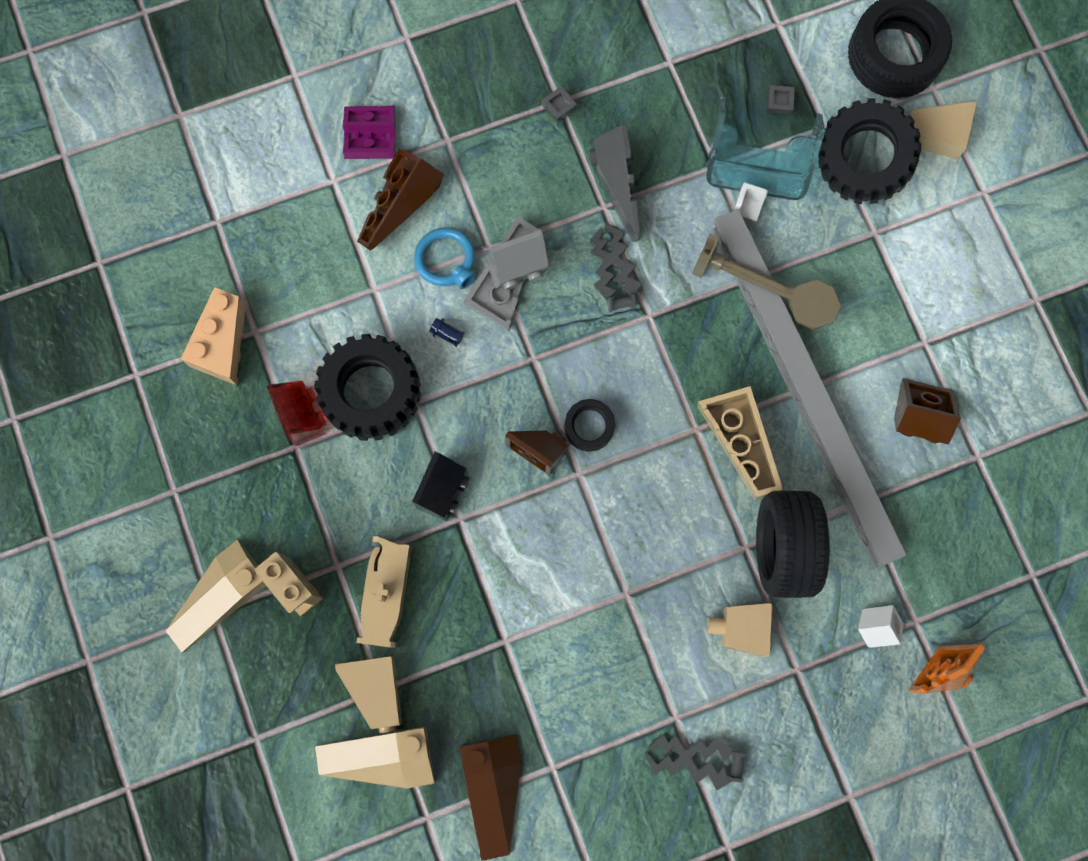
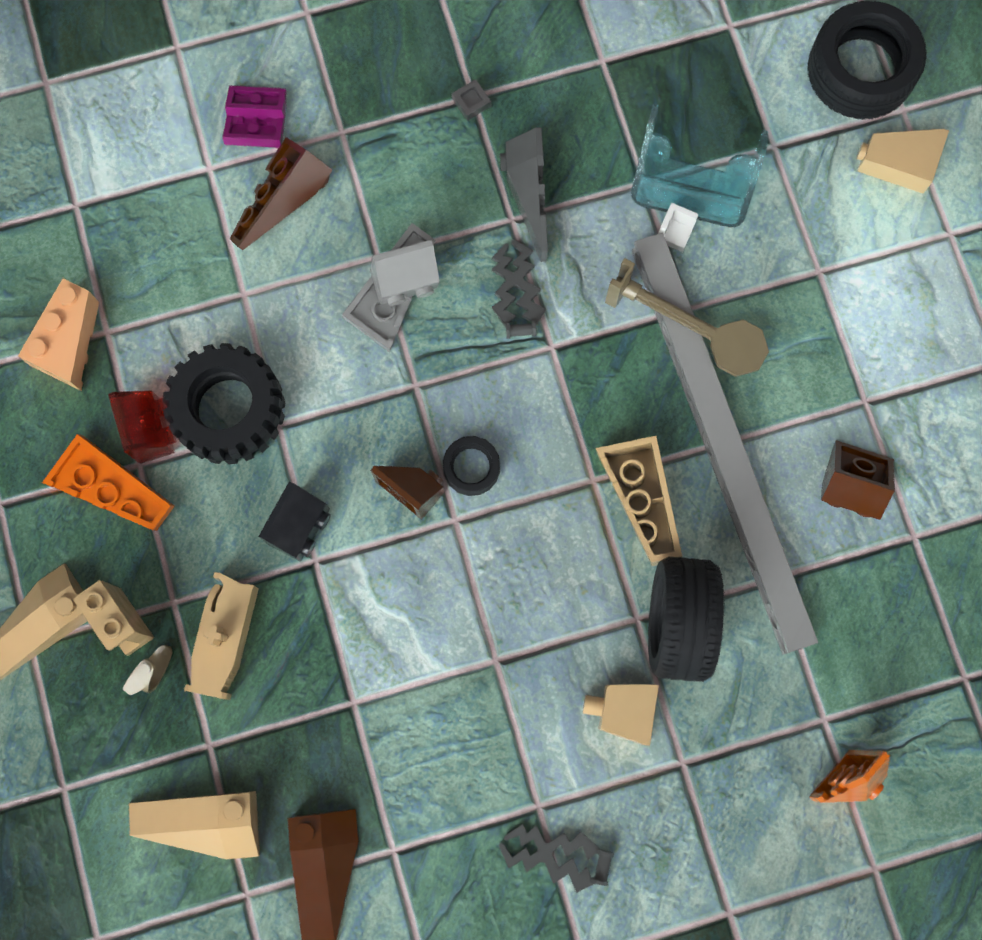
camera: 10 degrees right, 0 degrees up
(265, 464) = (101, 480): none -> orange wing
(324, 629) = (149, 672): none -> dark tan helmet
(374, 691) = (199, 746): tan slope -> none
(446, 332) = (320, 348): dark blue pin -> none
(462, 275) = (344, 284): dark azure piece -> none
(780, 99) = (724, 111): flat silver plate -> none
(877, 118) = (818, 139): black tyre -> none
(881, 626) = (782, 721): white panel -> none

